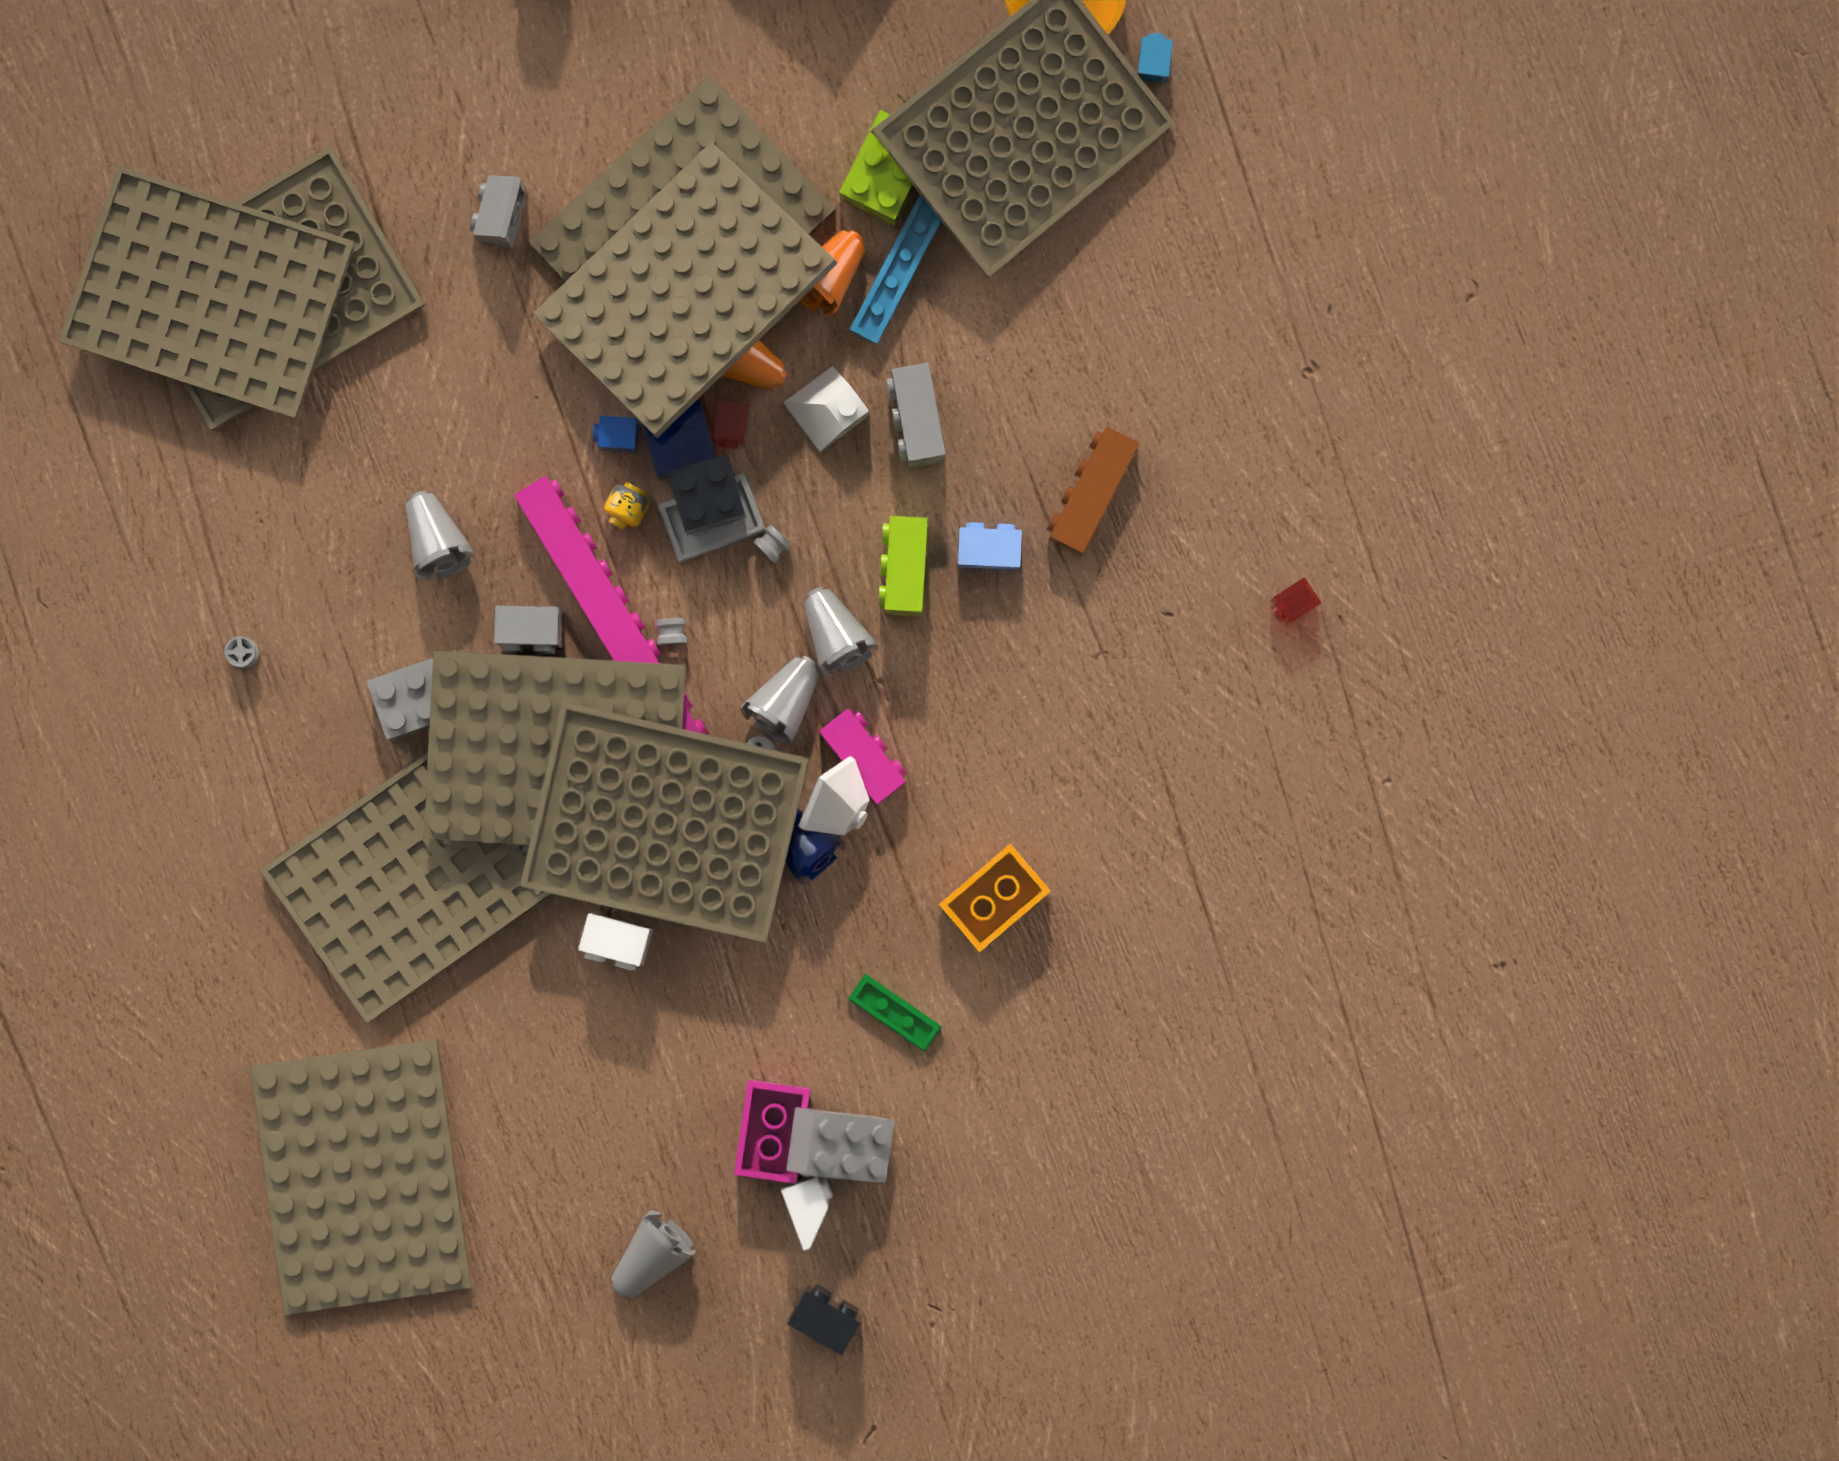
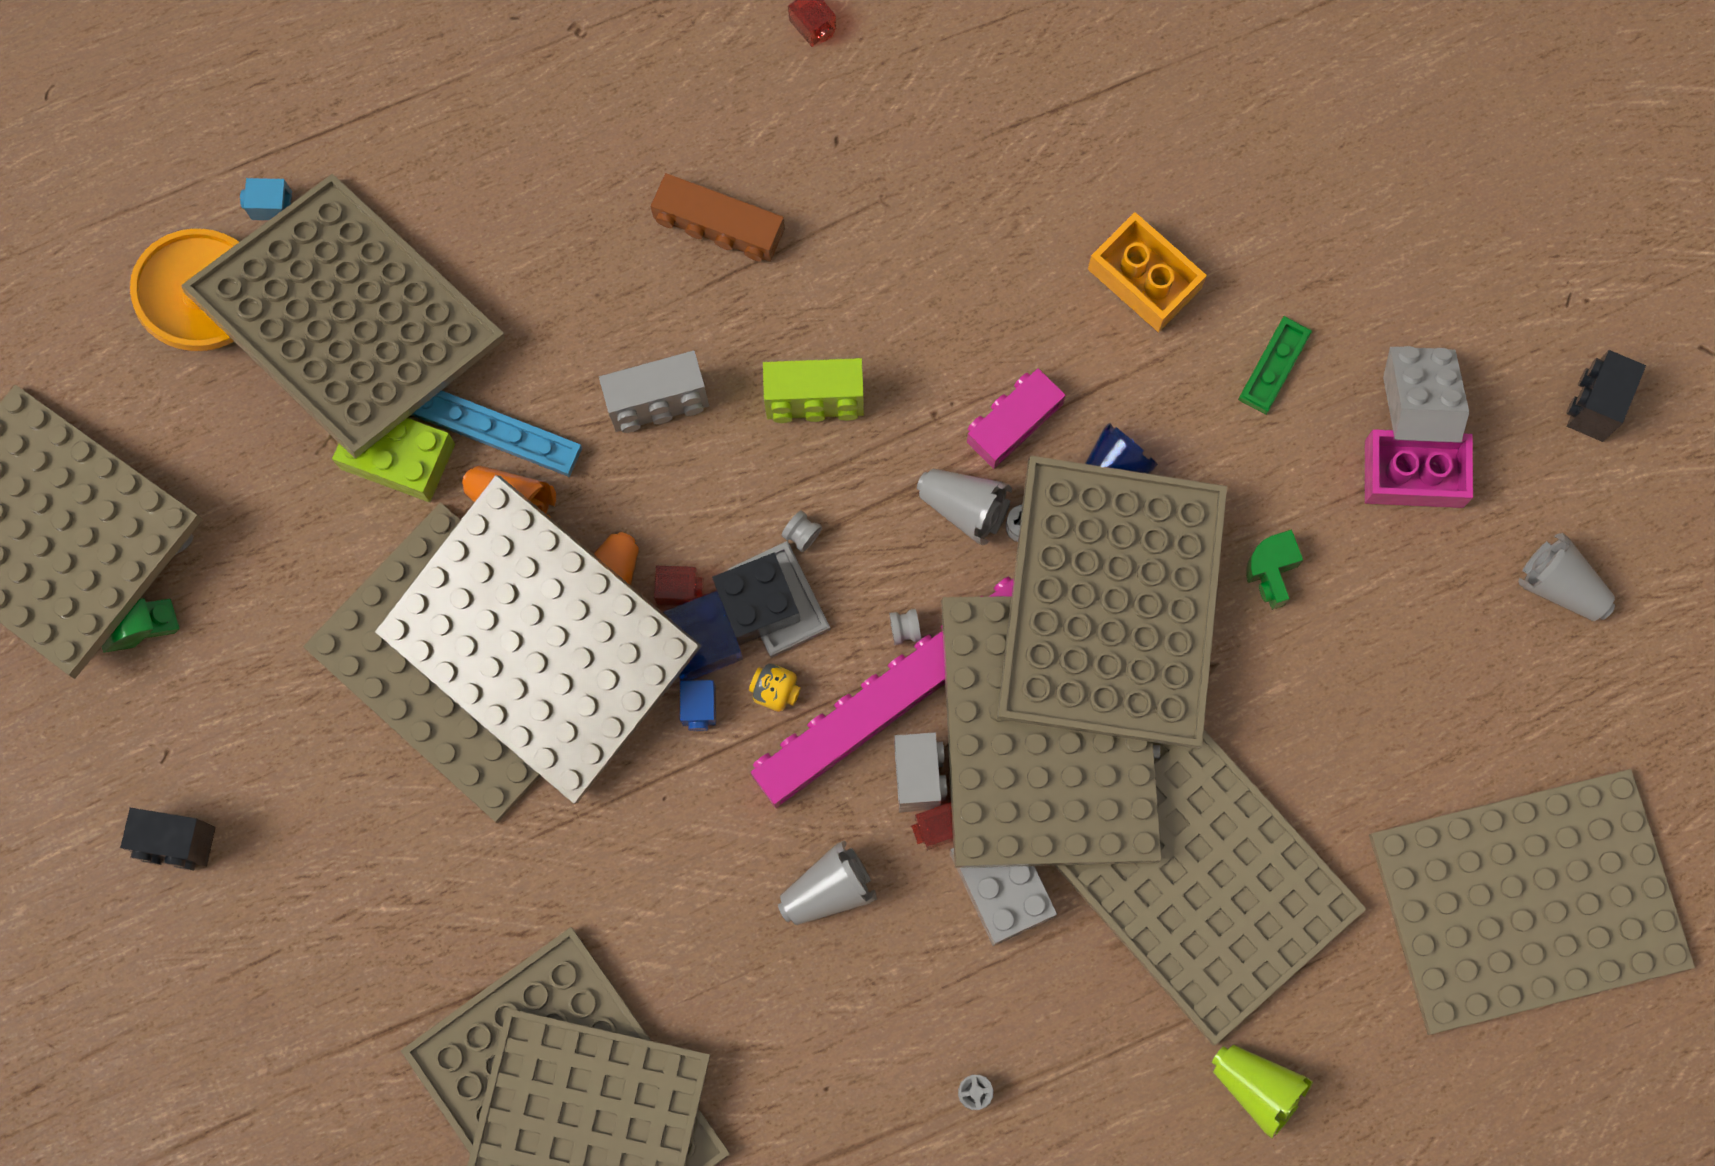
camera: 90 degrees left, 10 degrees down
(218, 905) = (1261, 1087): none -> lime cone
(480, 637) = (934, 827): none -> clear red brick
(499, 211) = (462, 853): light grey slope -> none
(615, 940) = (1242, 647): white brick -> none
(702, 979) = (1269, 559): none -> green brick
(807, 1206) = (1498, 420): white slope -> none
(827, 408) = (652, 489): white slope -> none
(836, 633) = (888, 456): light grey cone -> none
(837, 801) = (1069, 429): white slope -> none
(989, 547) = (785, 313): light blue brick -> none

